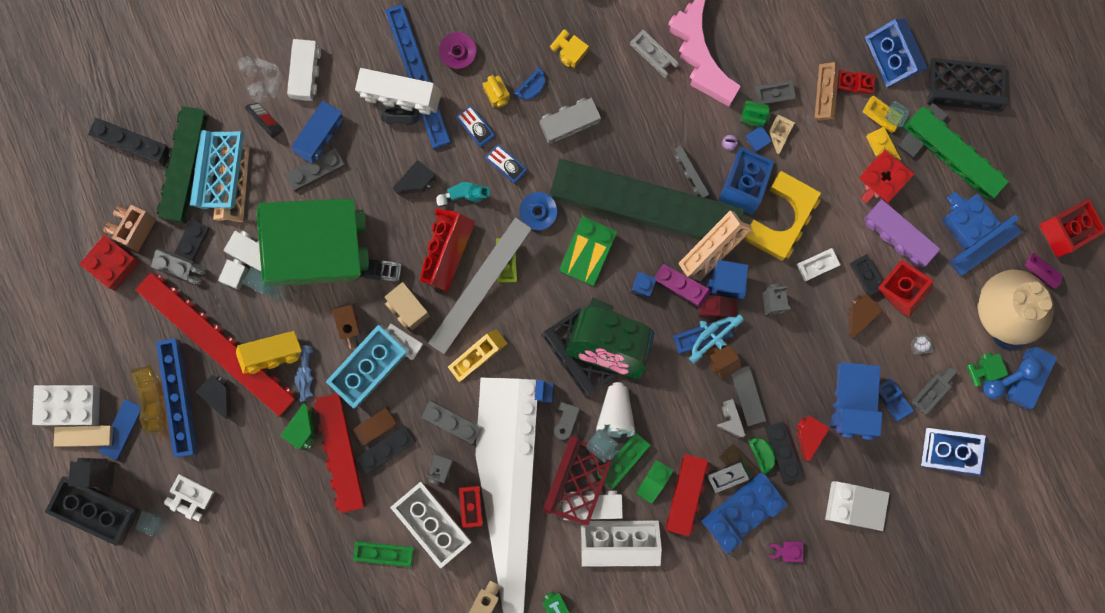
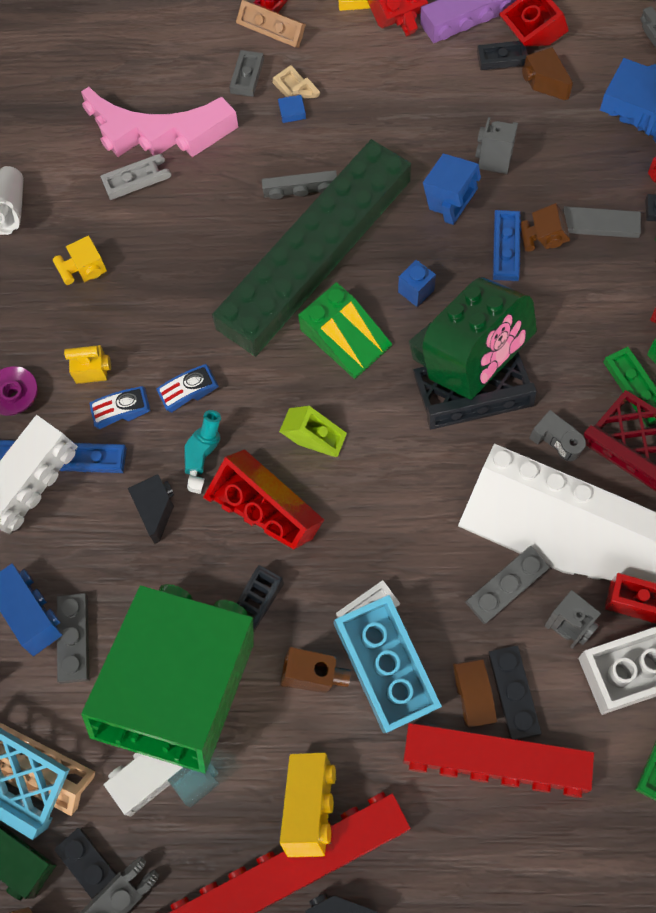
camera: 55 degrees left, 15 degrees down
(233, 273) = (166, 815): white brick -> none
(301, 429) = (443, 799): green slope -> none
(303, 378) = (363, 771): medium blue piece -> none
(398, 115) = (54, 497): black plate -> none
(407, 306) = (323, 578): tan piece -> none
(477, 355) = (427, 515): yellow slope -> none
(479, 285) = (336, 471): light grey tile -> none
(531, 203) = (266, 358): blue dish -> none
(532, 86) = (104, 324): blue tile -> none
(544, 391) = (512, 441): blue slope -> none
(569, 120) = (168, 293): light grey brick -> none
(602, 446) = (613, 396): clear light blue brick -> none
(616, 412) = (572, 369): white cone -> none
(682, 285) = (437, 236): magenta plate -> none
(696, 355) = (505, 232): medium azure piece -> none
(714, 245) = (403, 181): light nougat fence -> none
(718, 307) = (475, 218): dark red slope -> none
(729, 145) = (285, 138): lavender hinge -> none
(734, 424) = (630, 244): light grey slope -> none
(746, 180) = (337, 133): blue slope -> none
(755, 114) = (261, 97): green brick -> none
(802, 200) = (388, 86): yellow arch -> none
(818, 264) = (469, 97): white plate -> none
(921, 345) = (604, 33): tile -> none

